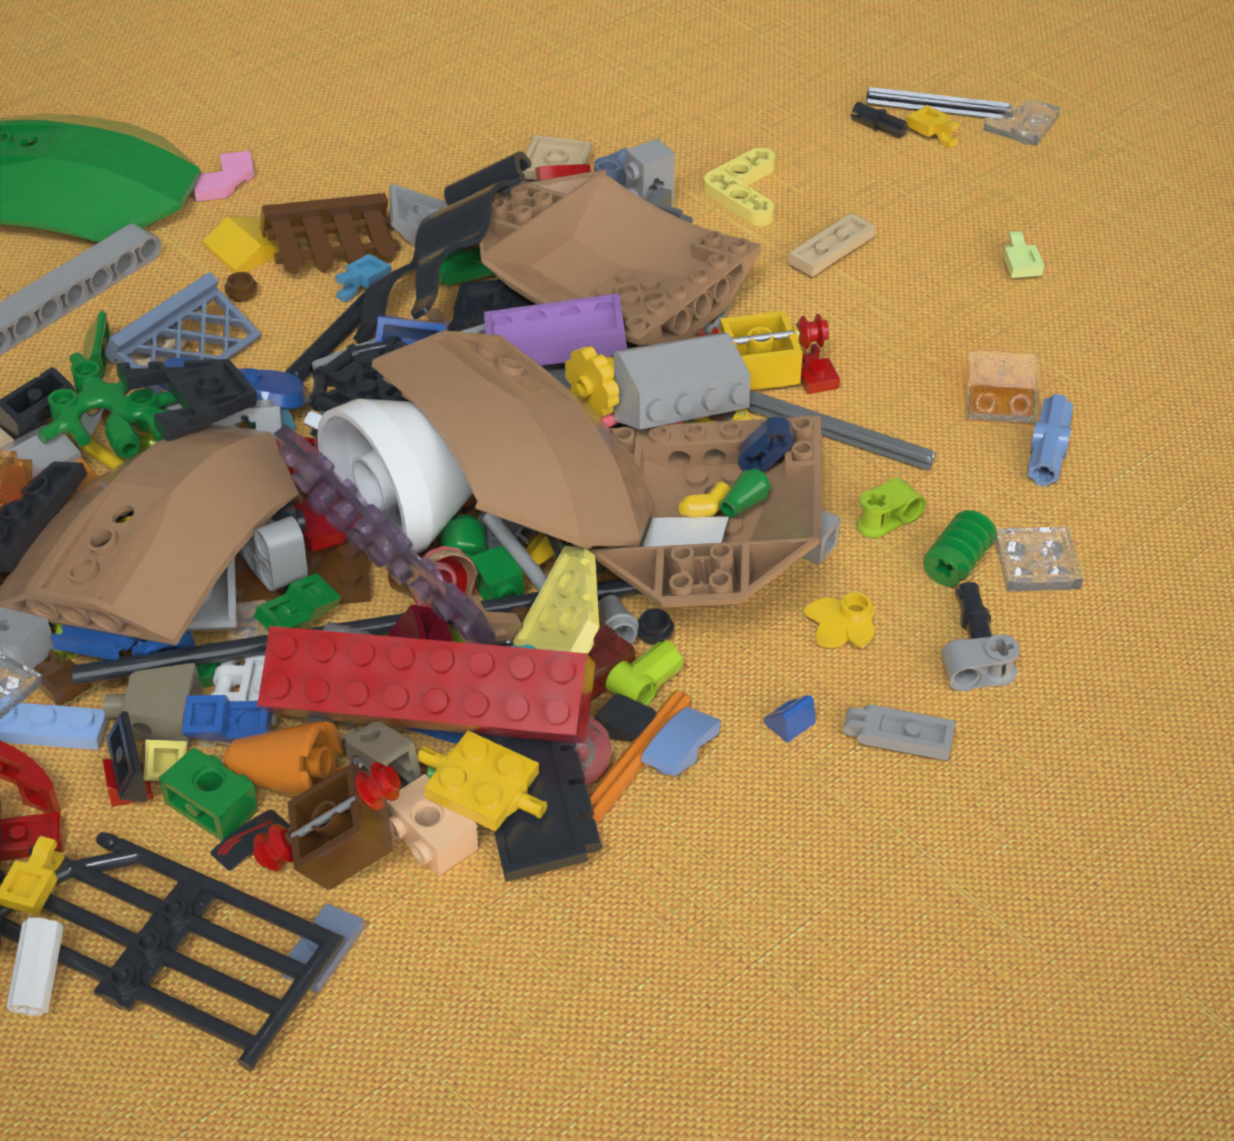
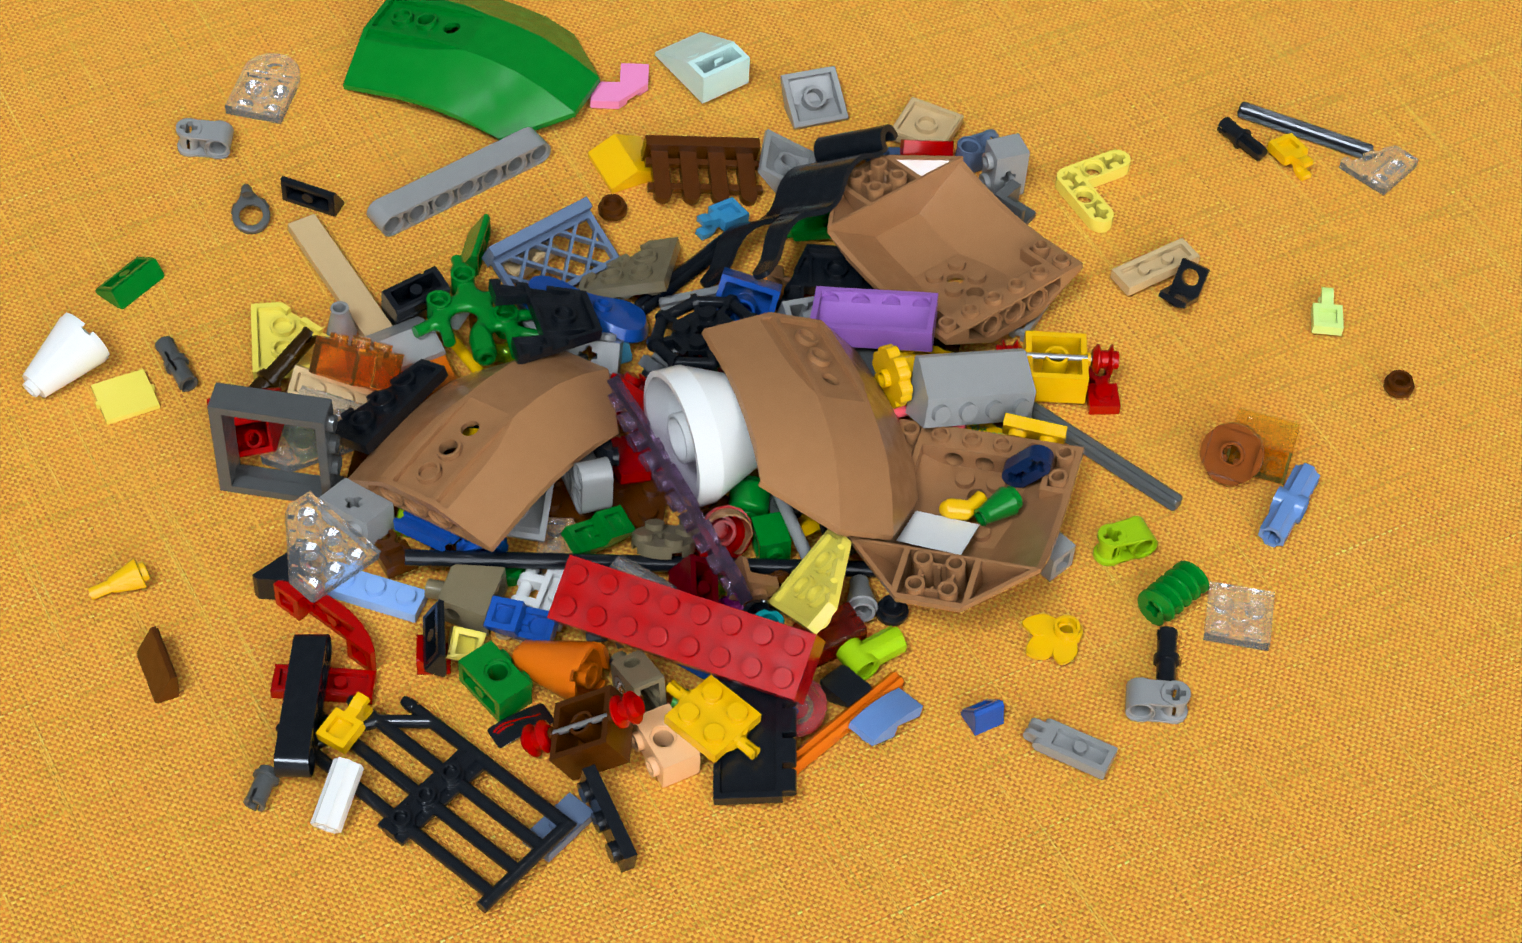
camera: 10 degrees right, 5 degrees up
(292, 337) = (642, 273): none -> dark tan plate
(313, 141) = (707, 65): none -> light aqua slope
(374, 602) = (662, 540): none -> dark tan plate
(380, 924) = (606, 819): none -> black plate
(431, 152) = (813, 97): none -> light grey slope
(758, 407) = (1033, 429): none -> yellow plate
(865, 264) = (1180, 293): none -> black bracket
(989, 413) = (1216, 461): none -> dark orange plate
(1118, 307) = (1399, 384): none -> reddish brown plate

